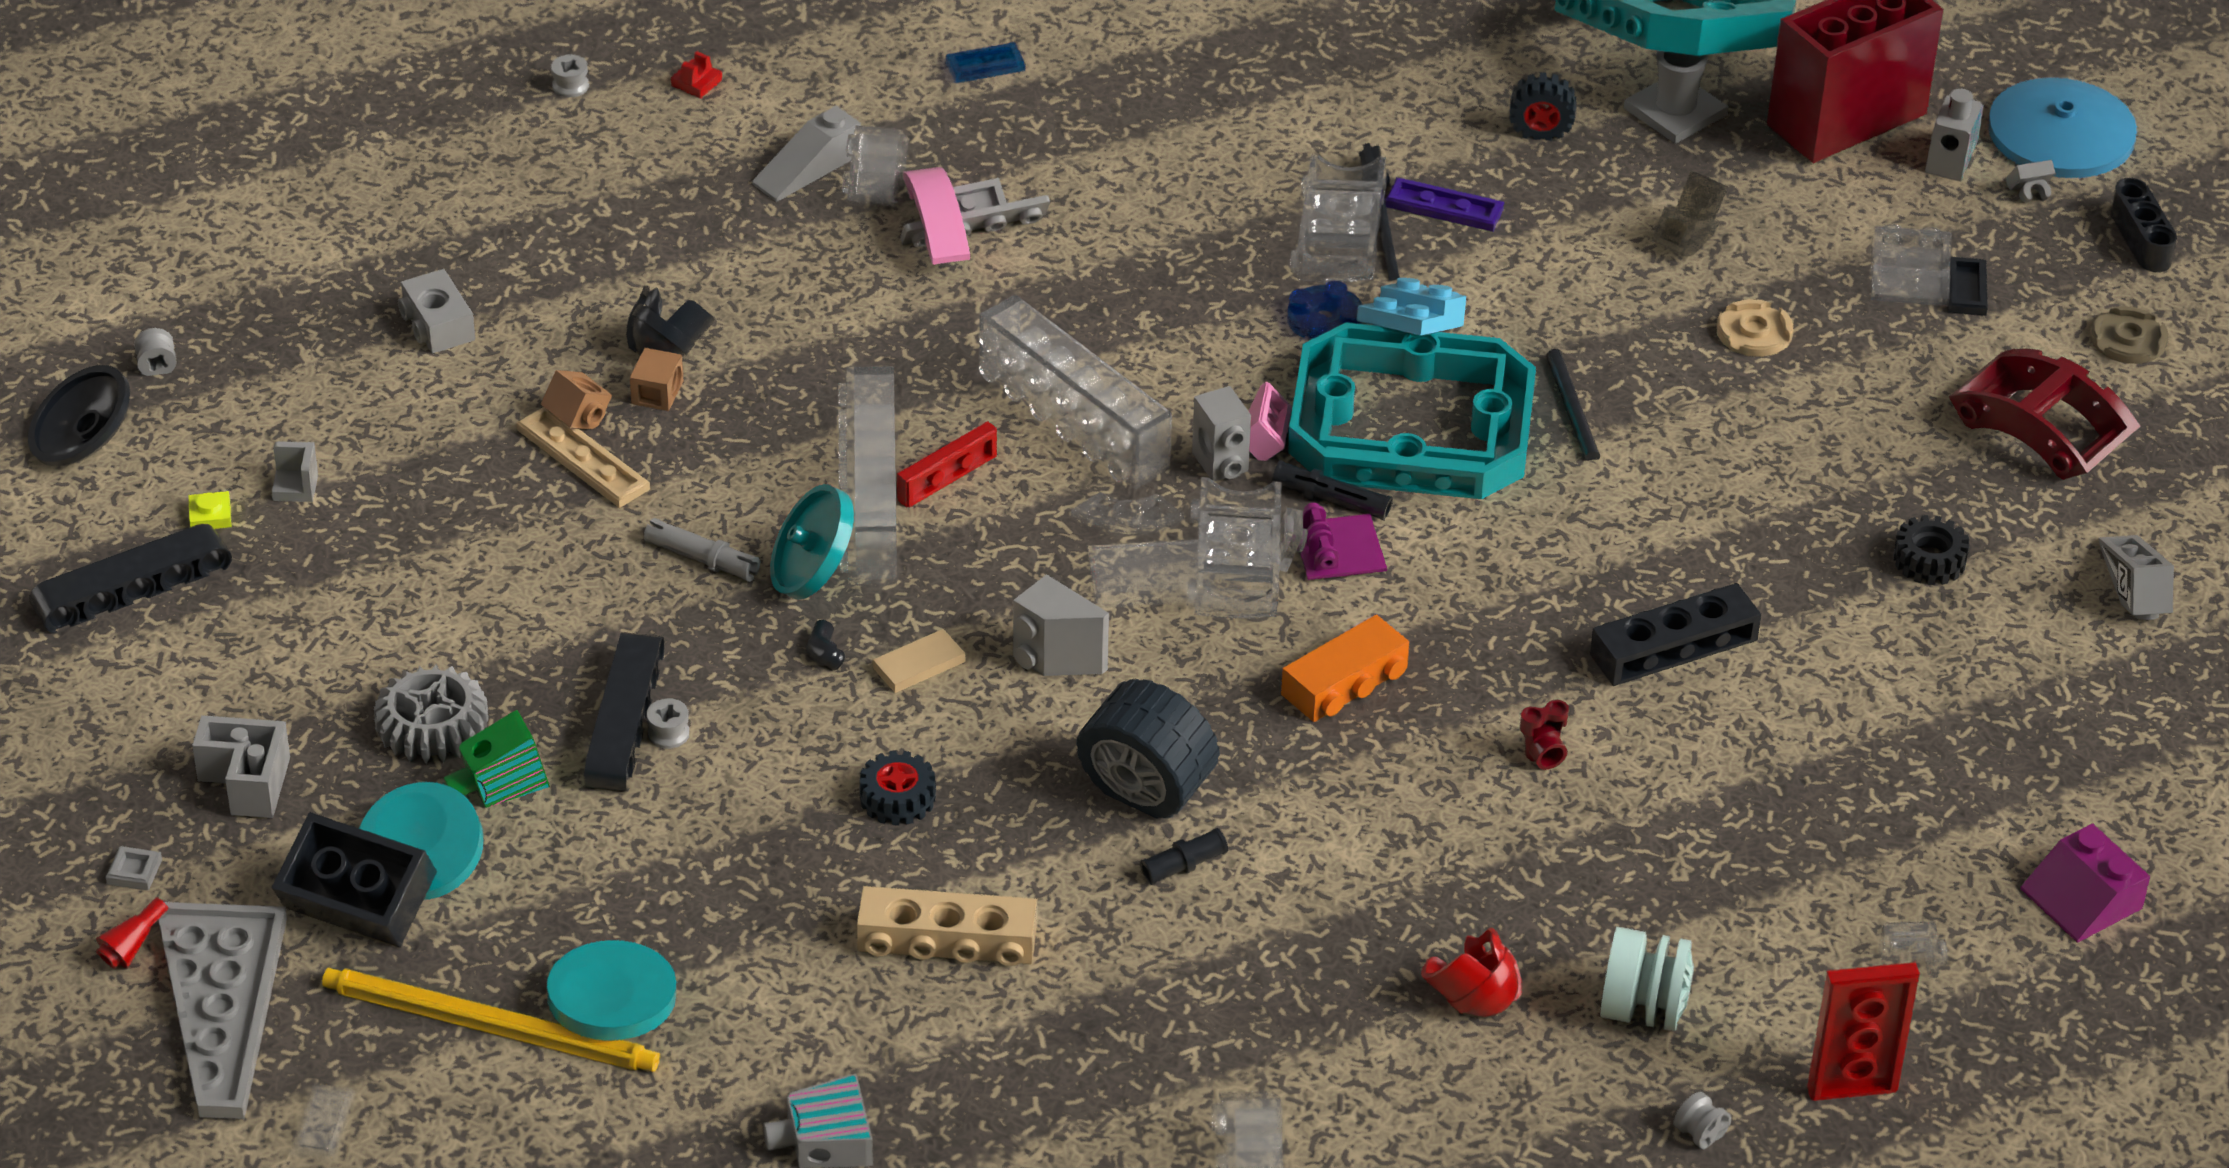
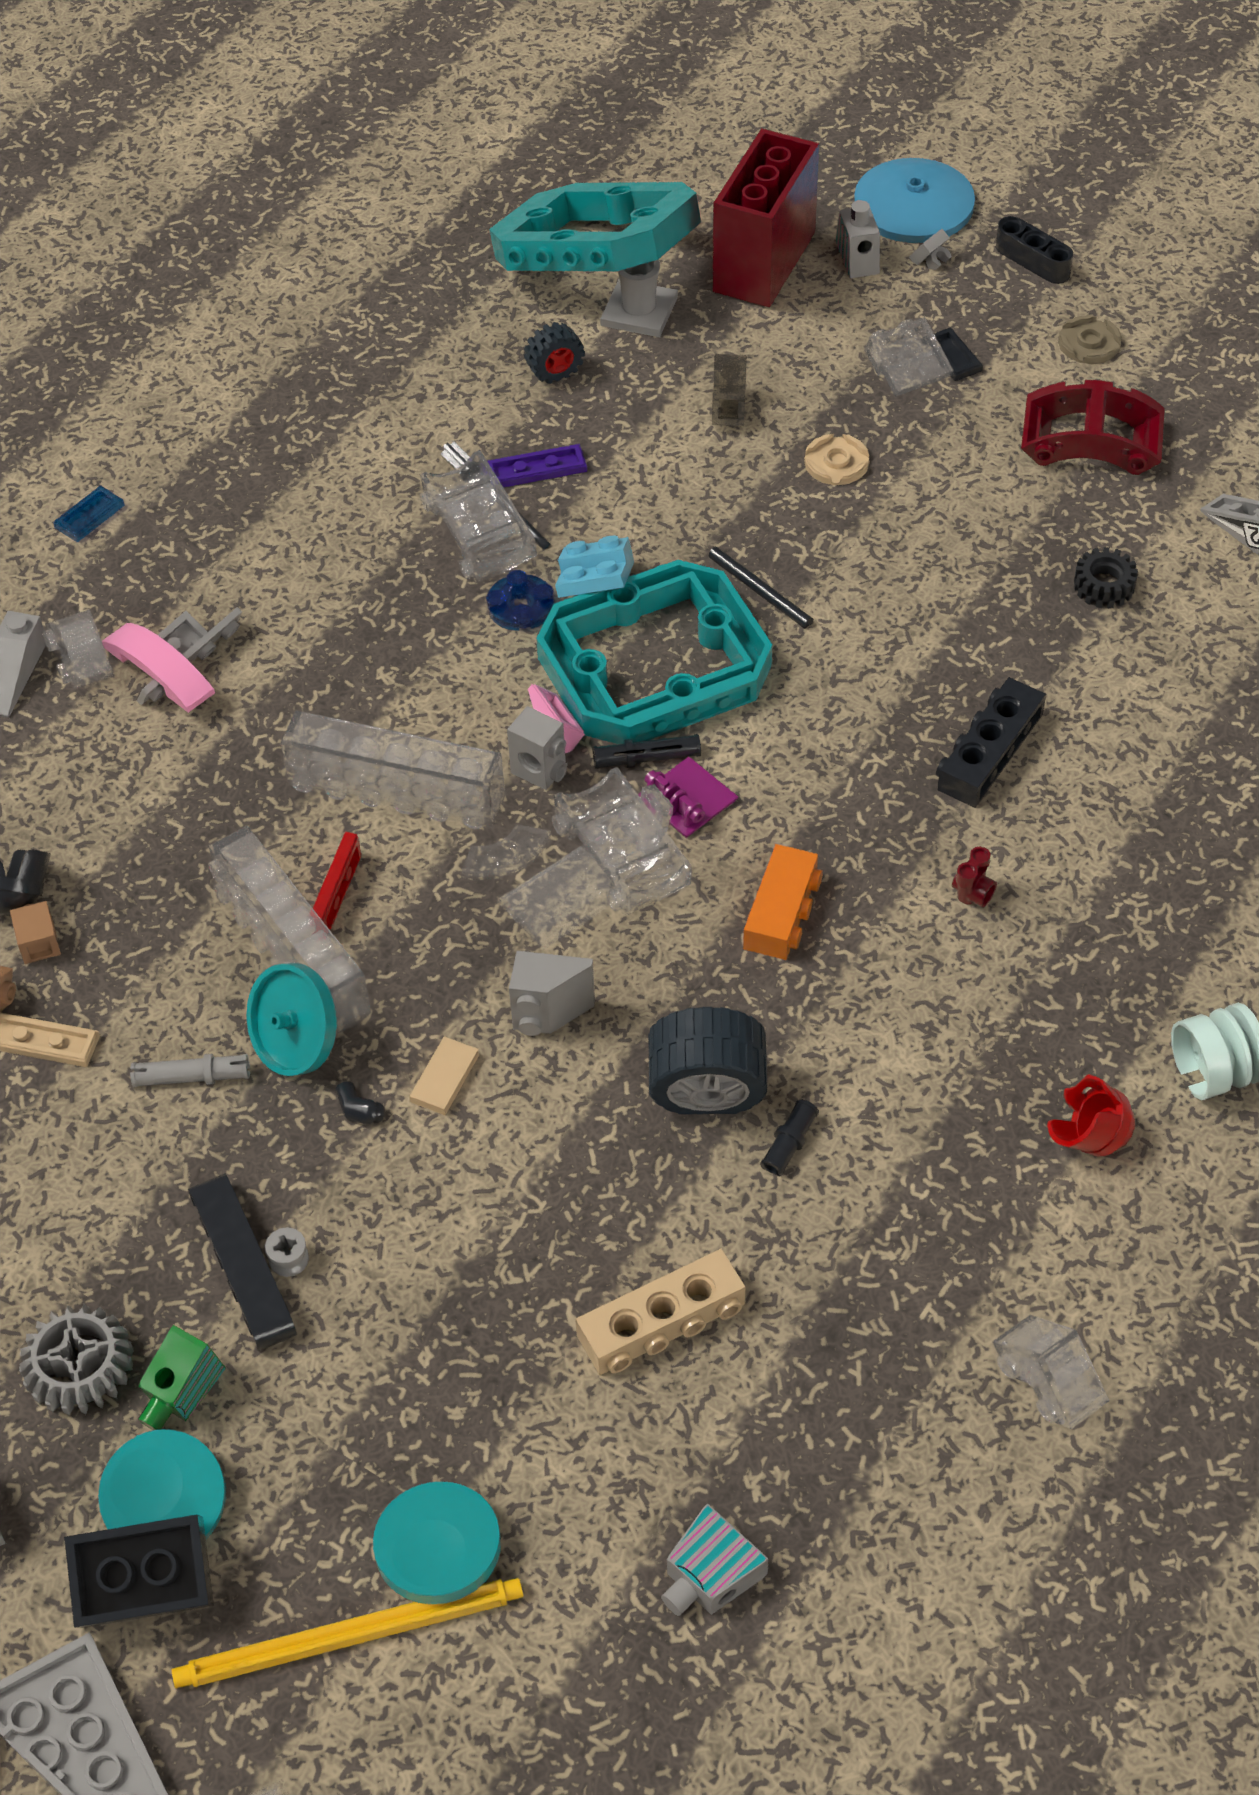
camera: 30 degrees left, 10 degrees up
(913, 784) = (525, 1191): black wheel -> none

